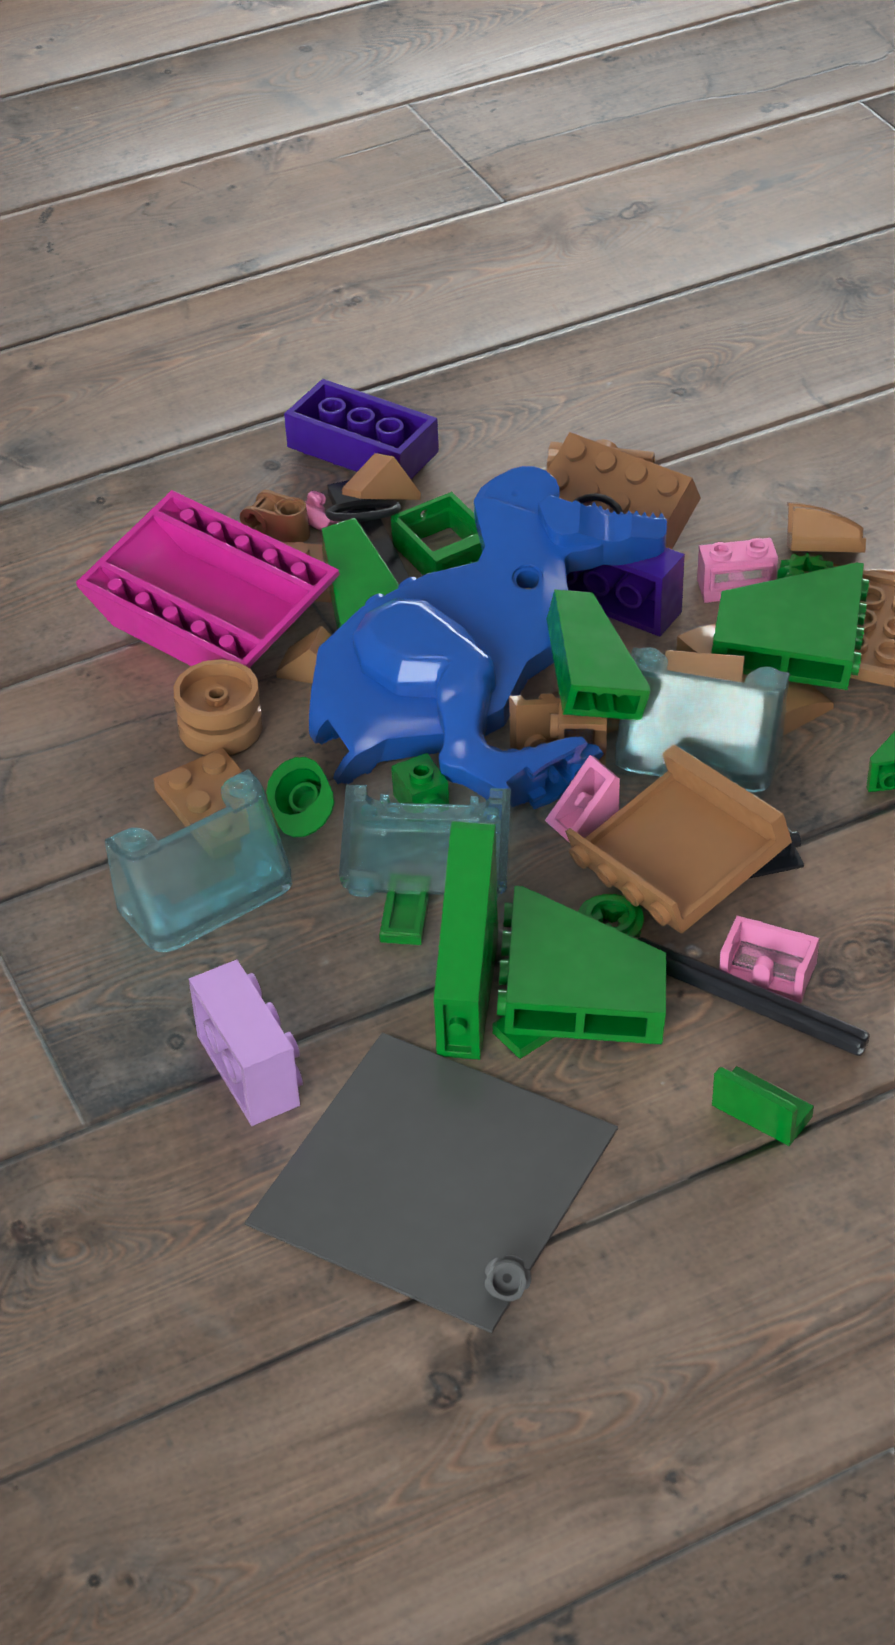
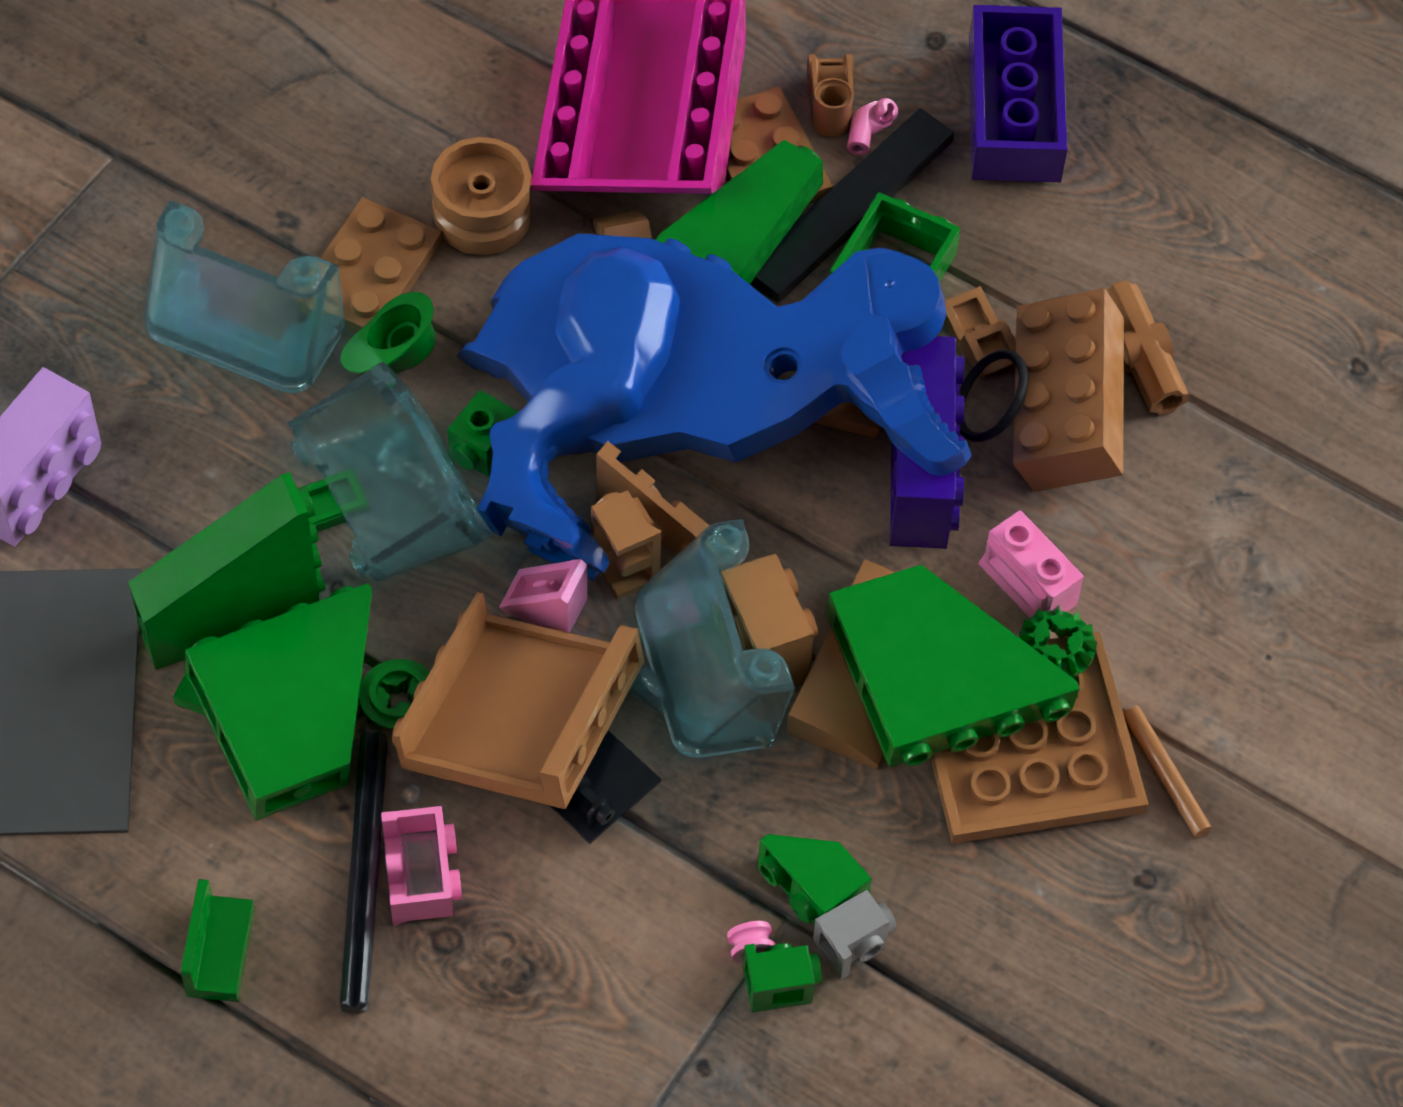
camera: 55 degrees right, 15 degrees up
(381, 479) = (935, 155): medium nougat slope -> none
(392, 507) = (864, 182): black tyre -> none
(591, 660) = (681, 487): green slope -> none
(822, 530) = (1155, 633): medium nougat piece -> none

